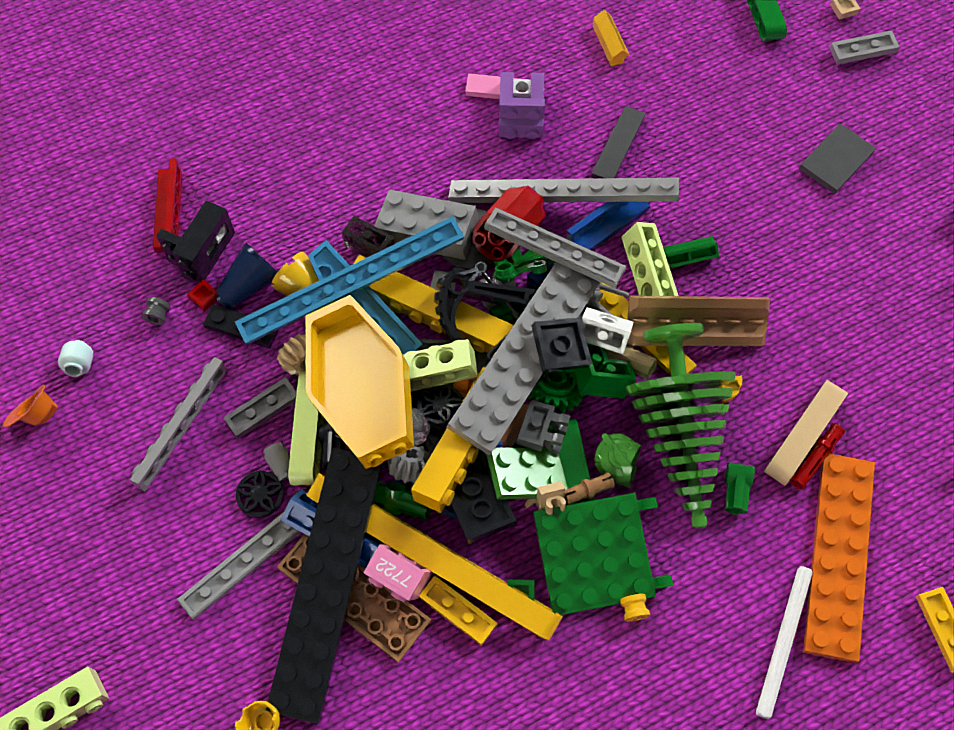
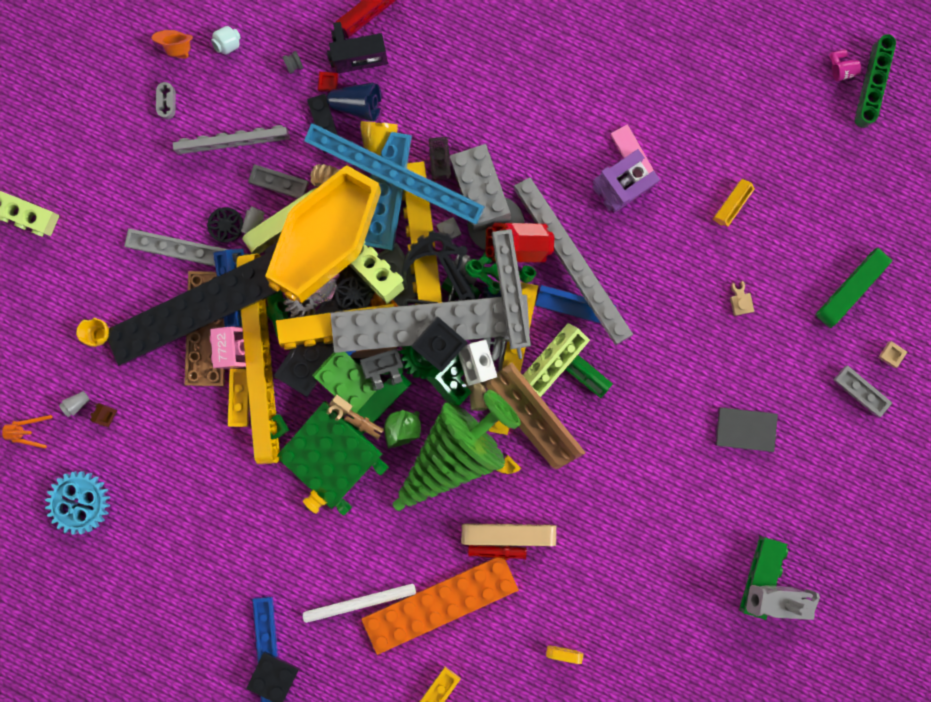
camera: 55 degrees right, 20 degrees up
(76, 467) = (170, 100): none -> light grey beam
(618, 143) = (645, 270): dark grey tile -> none
(708, 90) = (741, 302): none -> tan plate
(739, 481) = (441, 513): green piece -> none

